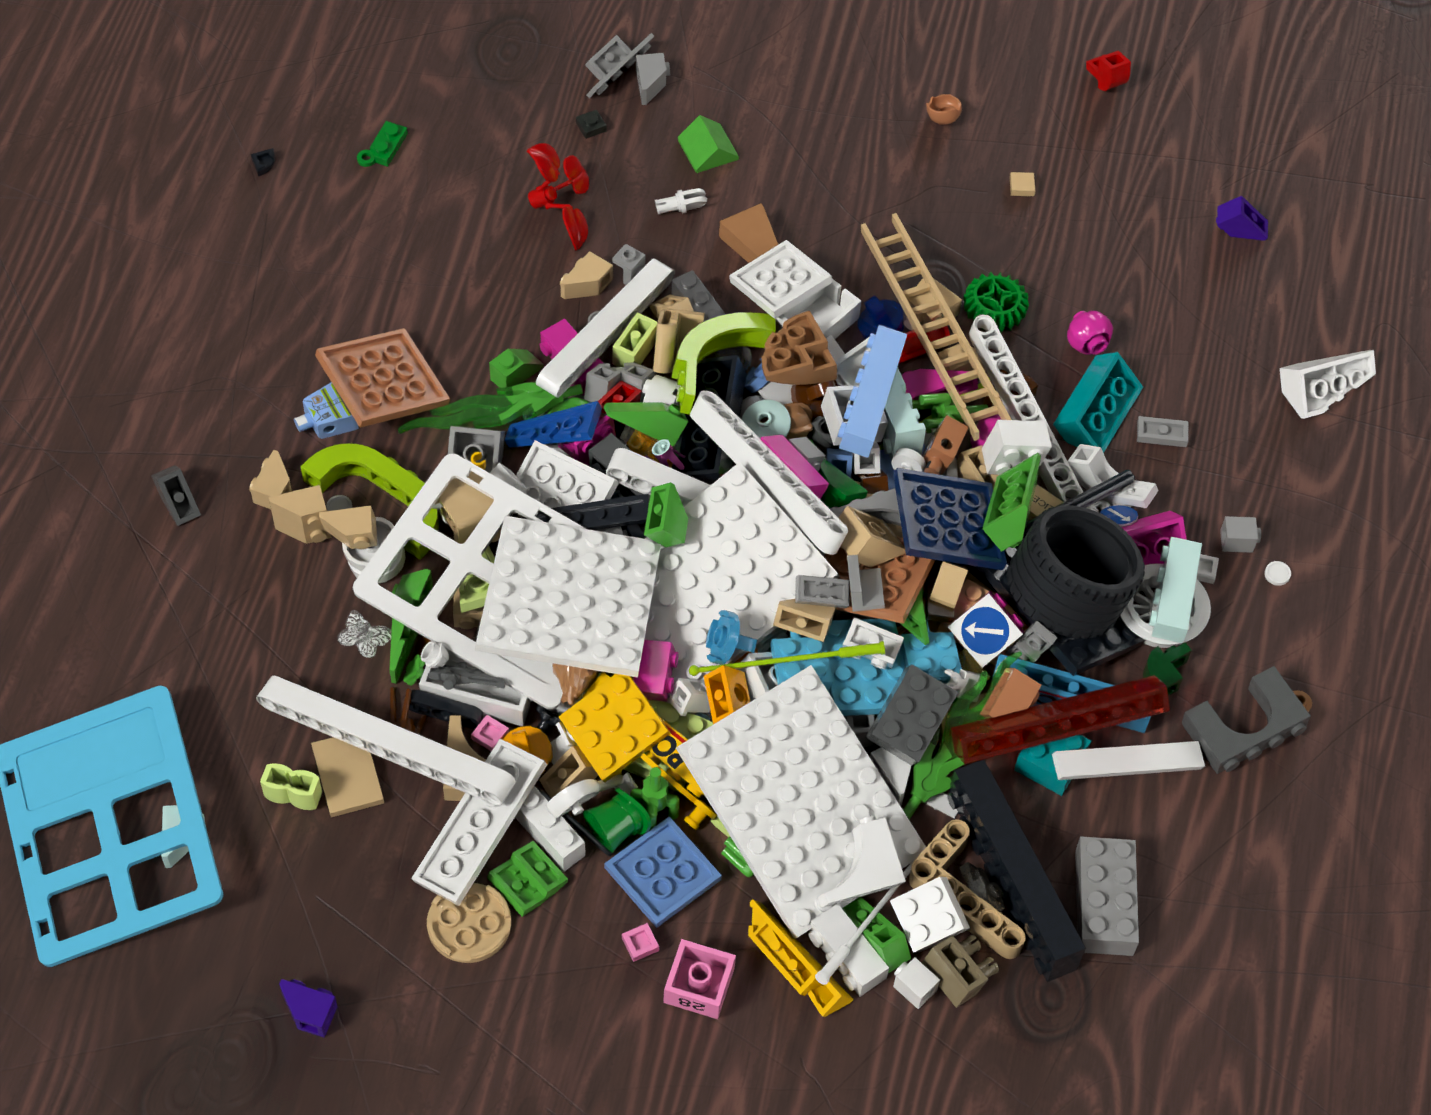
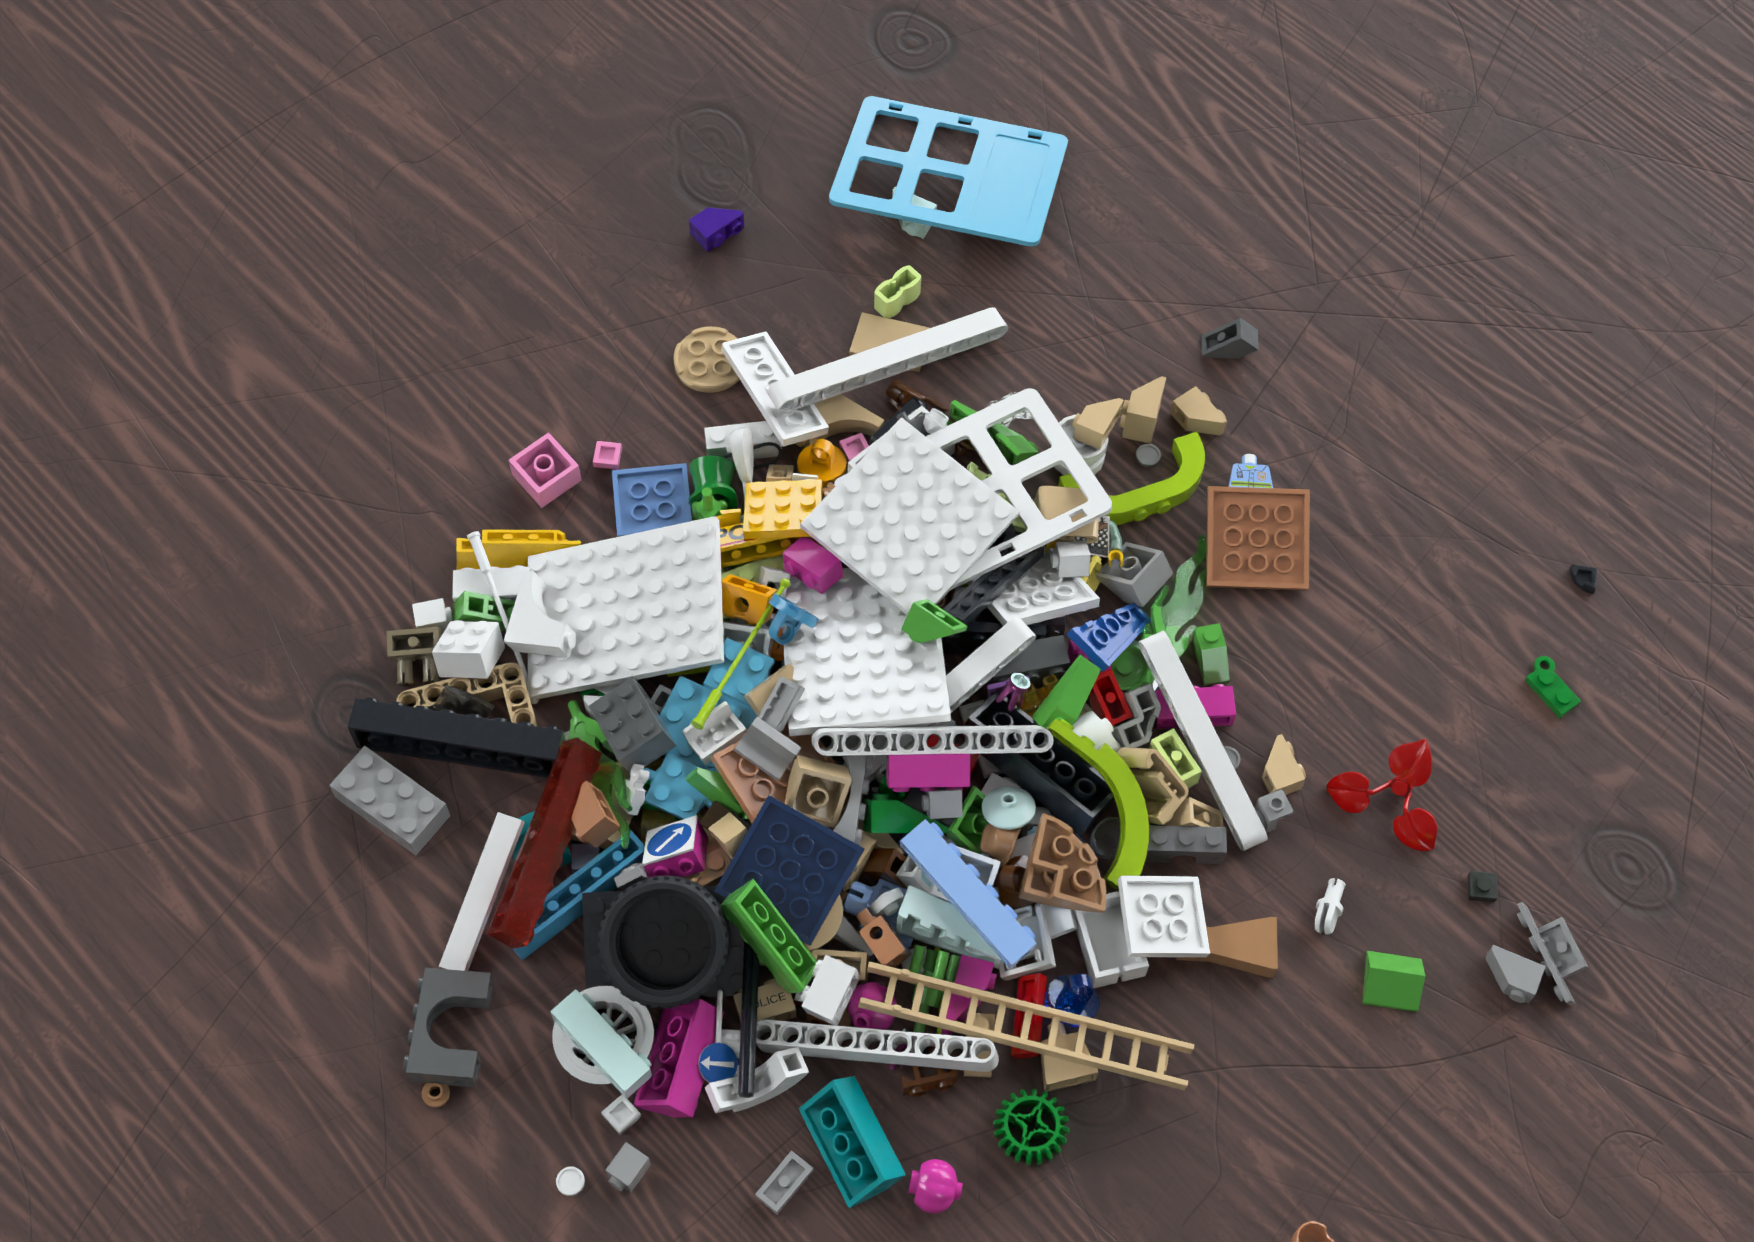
camera: 125 degrees right, 5 degrees up
(527, 878) = (714, 409): bright green slope -> none
(1165, 665) = (544, 989): dark green brick -> none

